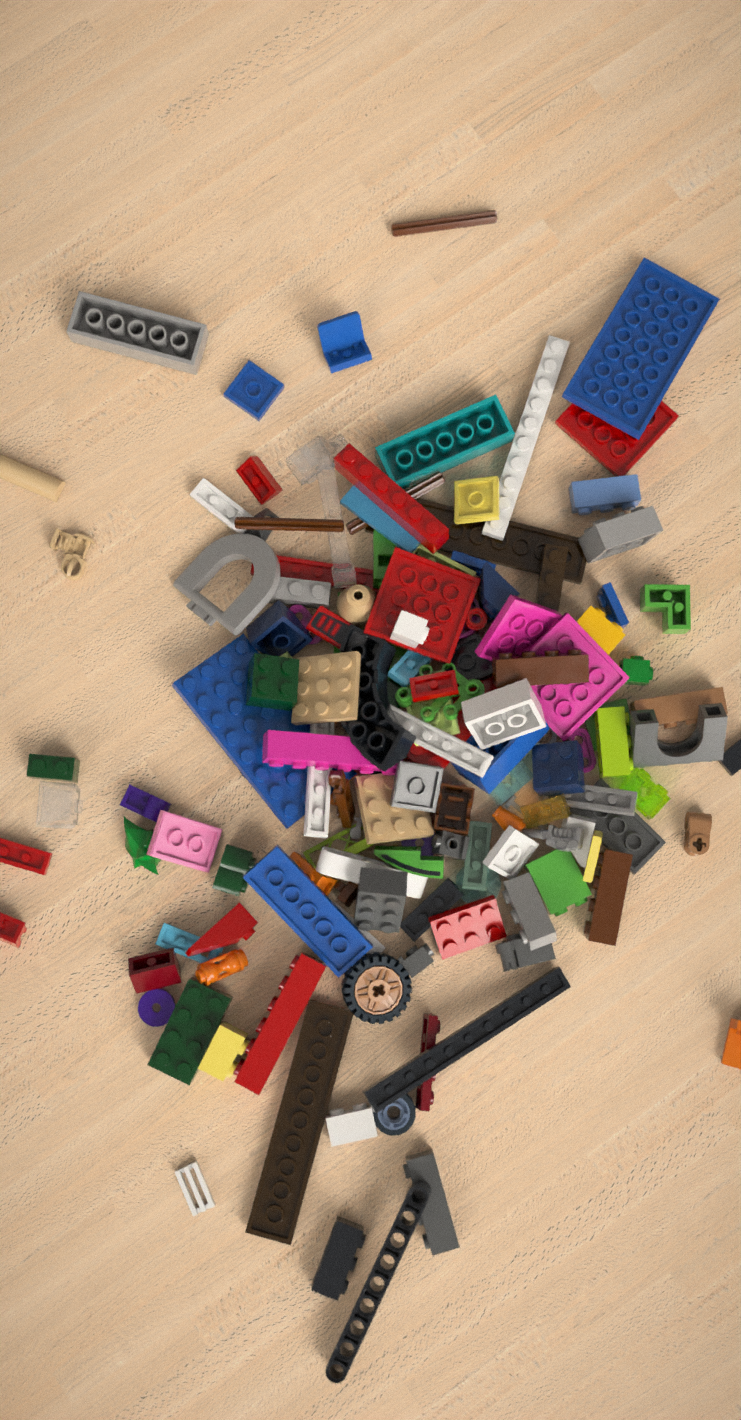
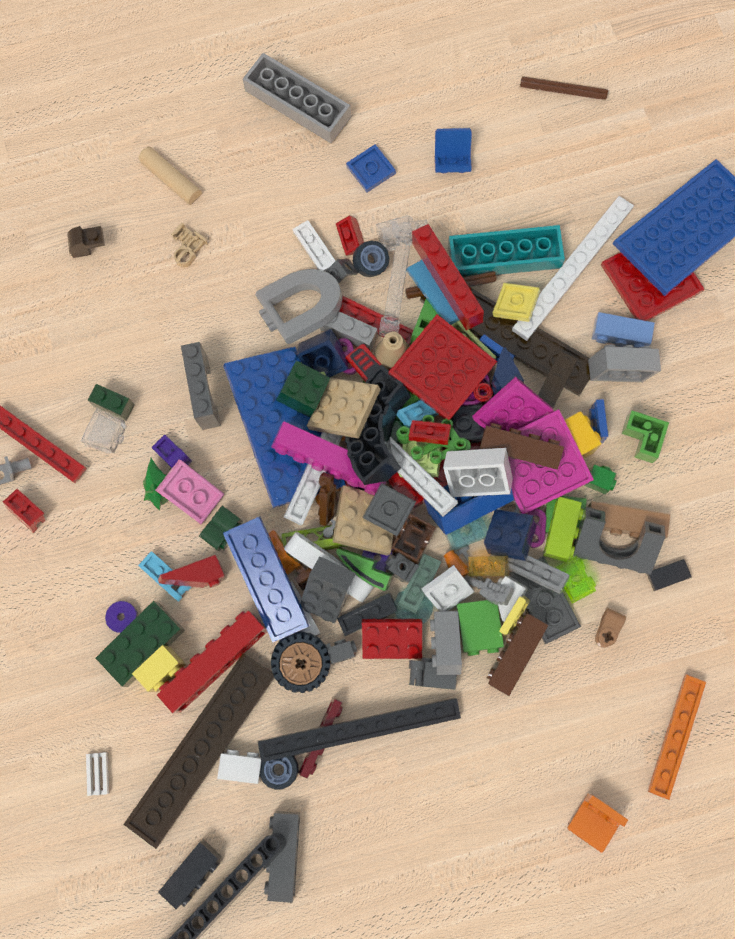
camera: 30 degrees right, 5 degrees down
(151, 716) = (196, 370): none -> dark grey arch
(154, 970) = (129, 586): dark red brick -> none
(231, 962) = (193, 601): orange piece -> none
(289, 524) = (360, 273): reddish brown axle -> none
(301, 492) = (380, 256): none -> wheel
(410, 629) = (424, 379): white brick -> none

